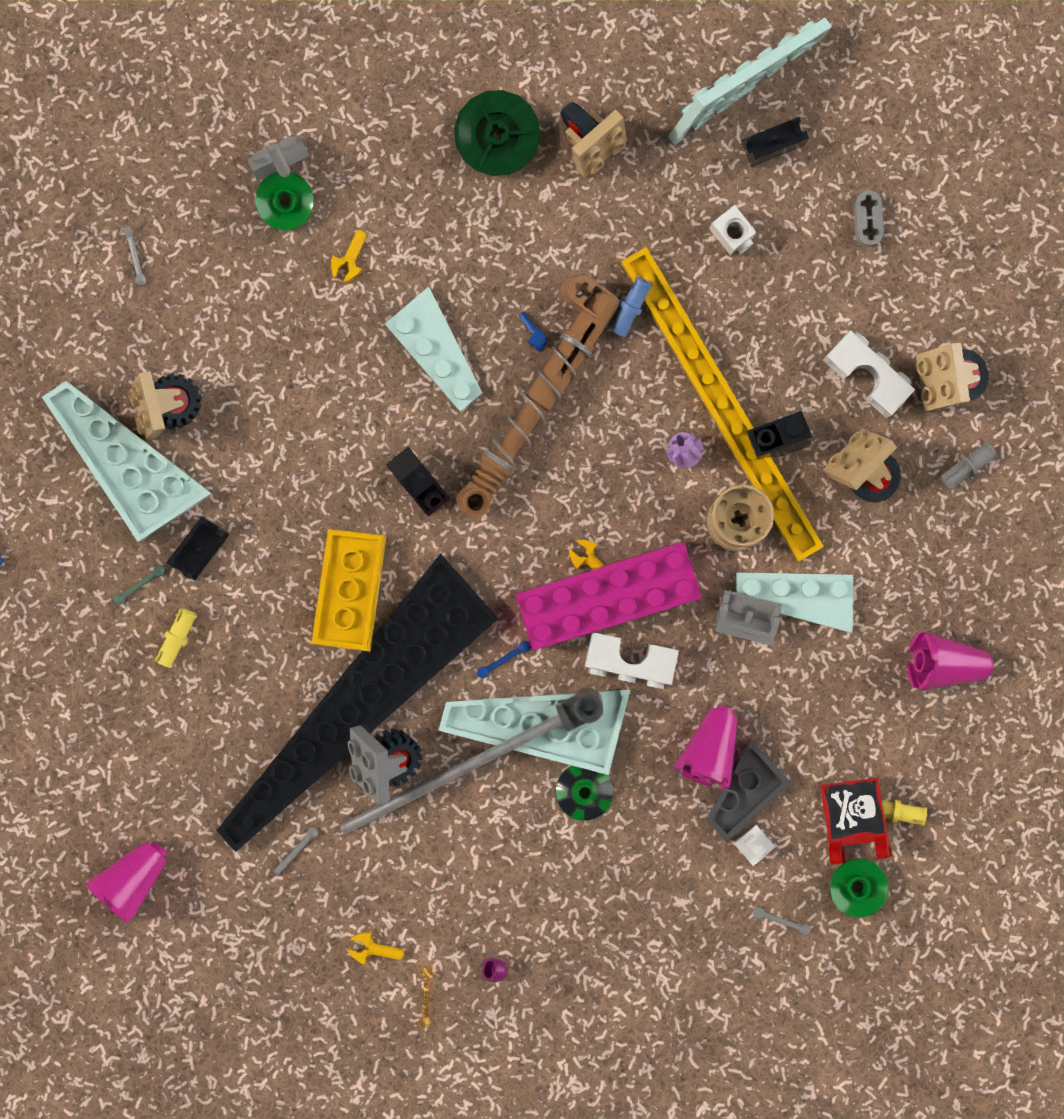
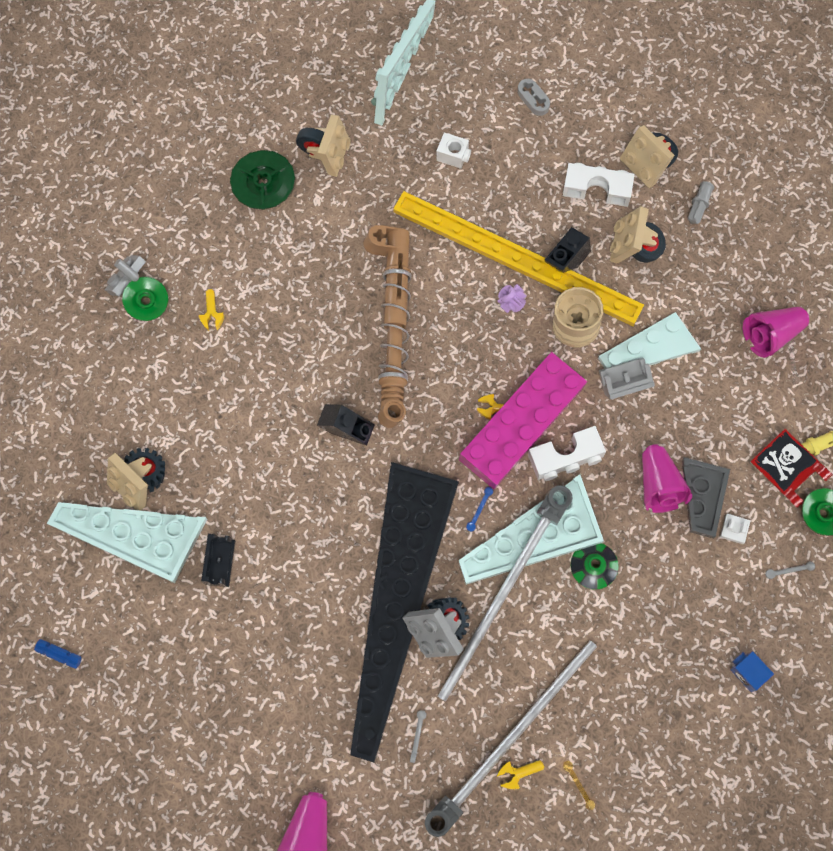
camera: 25 degrees left, 15 degrees down
(140, 279) = (73, 407): light grey hinge -> none
(159, 570) = (199, 595): sand green hinge -> none
(175, 637) = (238, 633): light yellow pin -> none
(283, 943) = (449, 809): none -> flat silver piece
(349, 590) = (343, 526): yellow tile -> none
(432, 344) = (301, 333): light aqua wing -> none
(494, 970) = (615, 732): magenta hinge -> none
(538, 339) = (368, 286): blue hand -> none
(631, 306) = (417, 231): medium blue pin -> none
(669, 996) = (751, 671): none -> blue brick
(774, 142) = (444, 86): black hinge -> none

